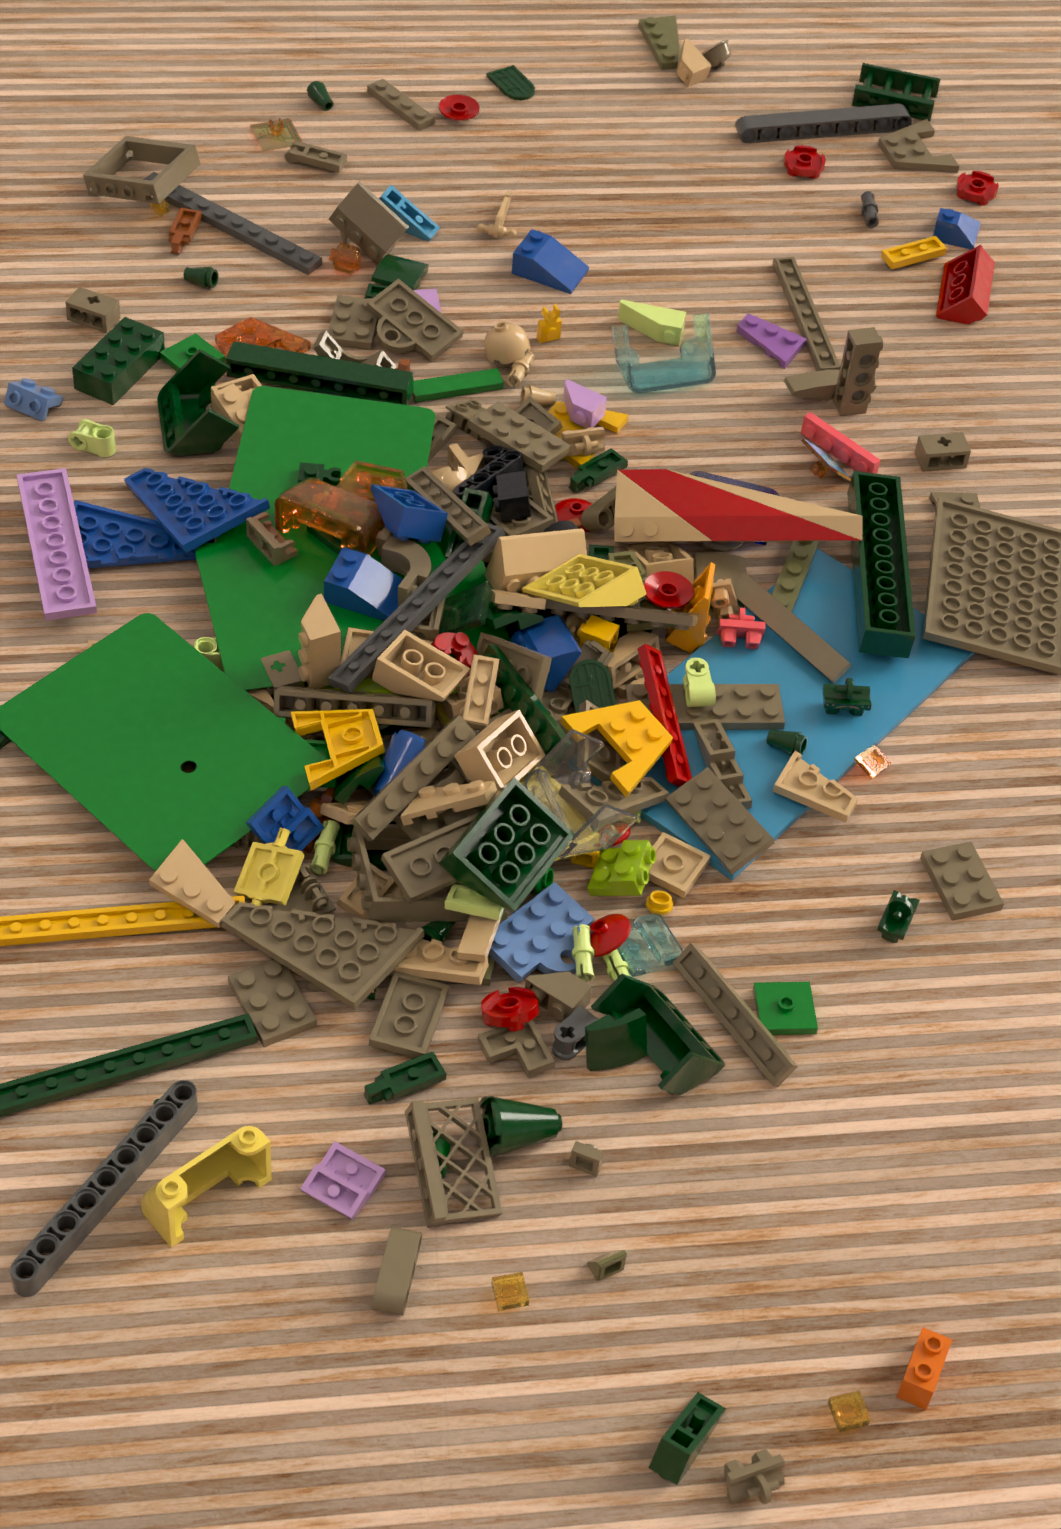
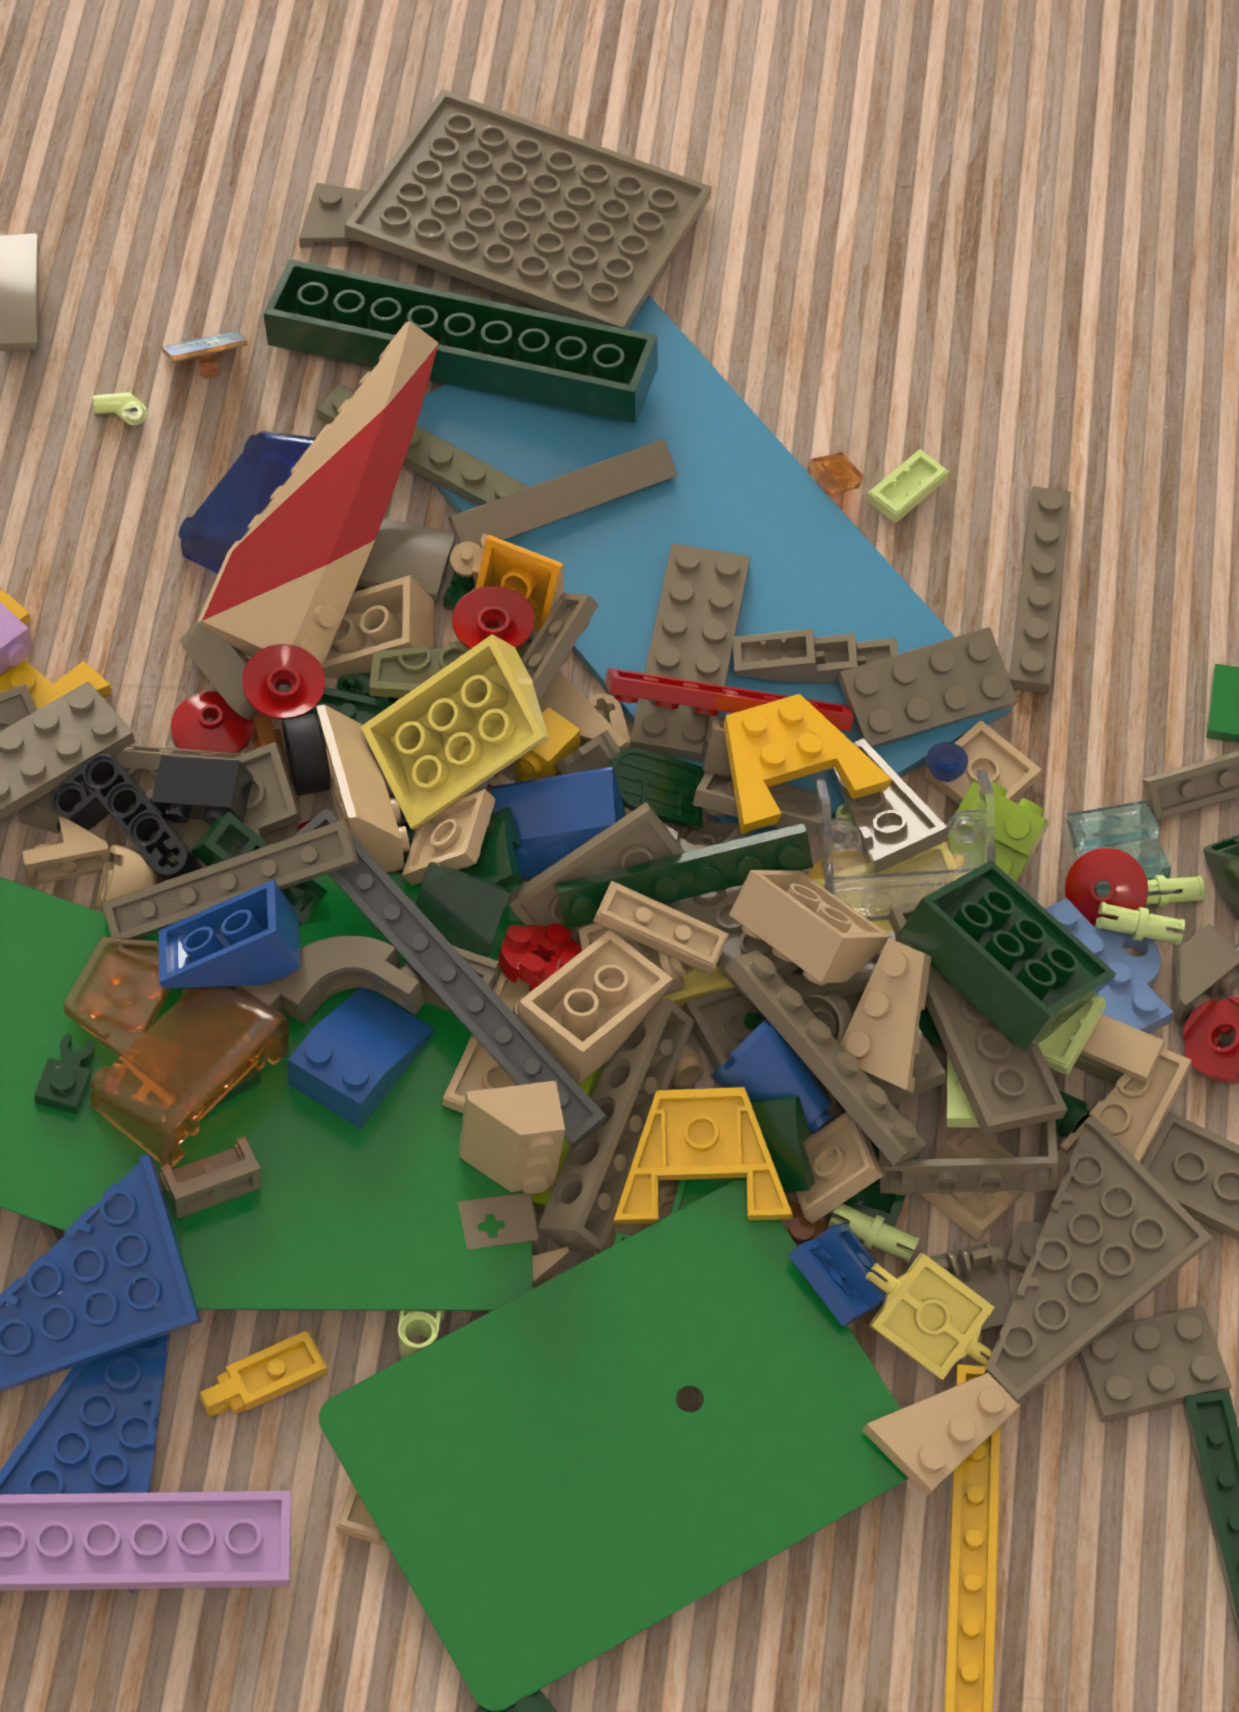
camera: 75 degrees left, 10 degrees up
(171, 598) = (265, 1376): none -> yellow hinge
(585, 440) = (73, 662): tan hips -> none
(597, 470) = (125, 665): dark green hinge -> none
(597, 516) = (283, 666): none -> red dish
(659, 903) = (1055, 805): yellow plate -> none
(667, 837) = (947, 761): none -> clear blue plate
(698, 684) = (680, 640): yellowish green piece -> none
(742, 627) = (560, 547): coral hips -> none
(775, 442) = (123, 405): none -> yellowish green arm
(787, 741) = (790, 562): dark green cone -> none
(809, 787) = (884, 559): tan wing -> none
(832, 882) = (1040, 590): none -> dark tan plate
(839, 445) = (167, 322): coral plate -> none
(846, 697) = (725, 466): dark green hips -> none
(857, 371) = (55, 236): dark tan brick -> none
(882, 801) = (907, 486): none -> yellowish green plate
(897, 917) = (1126, 524): dark green hips -> none
(942, 451) = (217, 195): dark tan brick -> none
(961, 881) = (1060, 437): dark tan plate -> none

